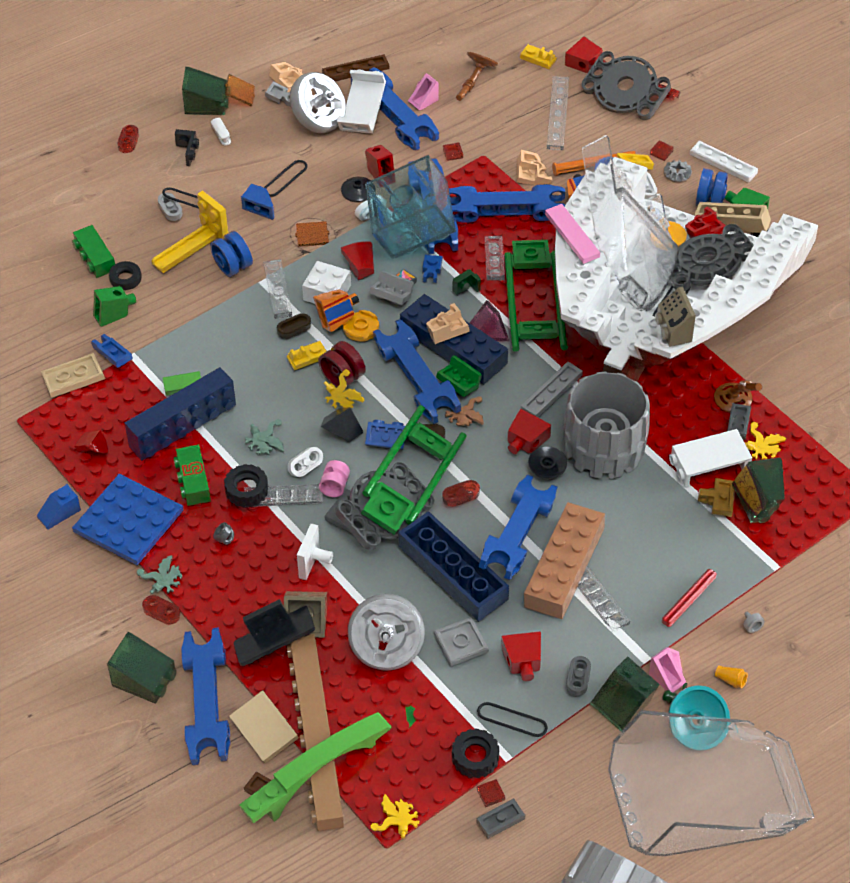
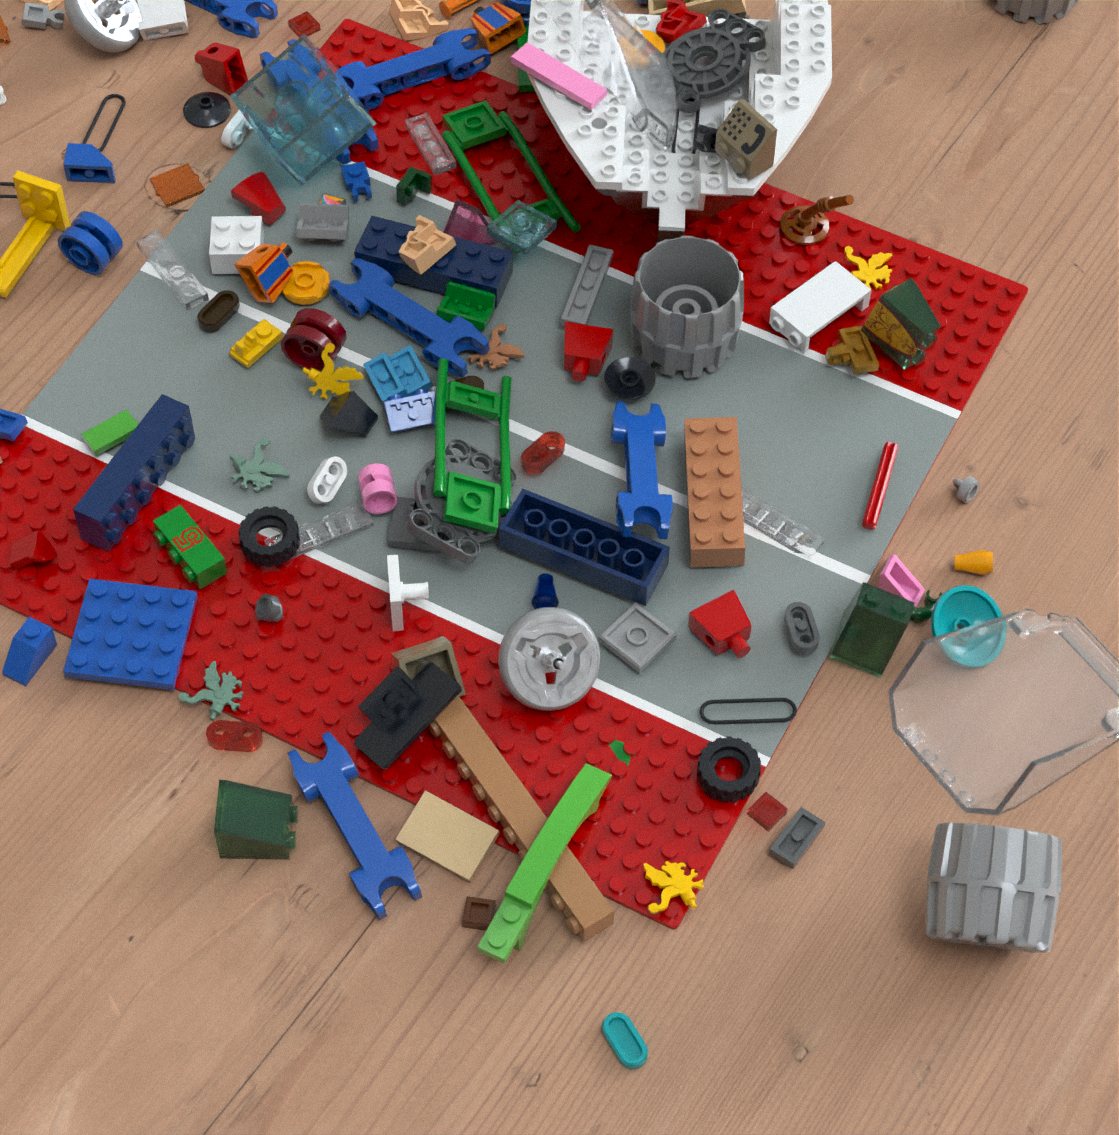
camera: 25 degrees left, 5 degrees up
(390, 406) = (397, 374): none -> dark azure slope
(412, 588) = (545, 592): none -> clear blue cone
(523, 334) = (521, 227): none -> clear light blue plate
(739, 419) = (827, 248): dark grey plate -> none

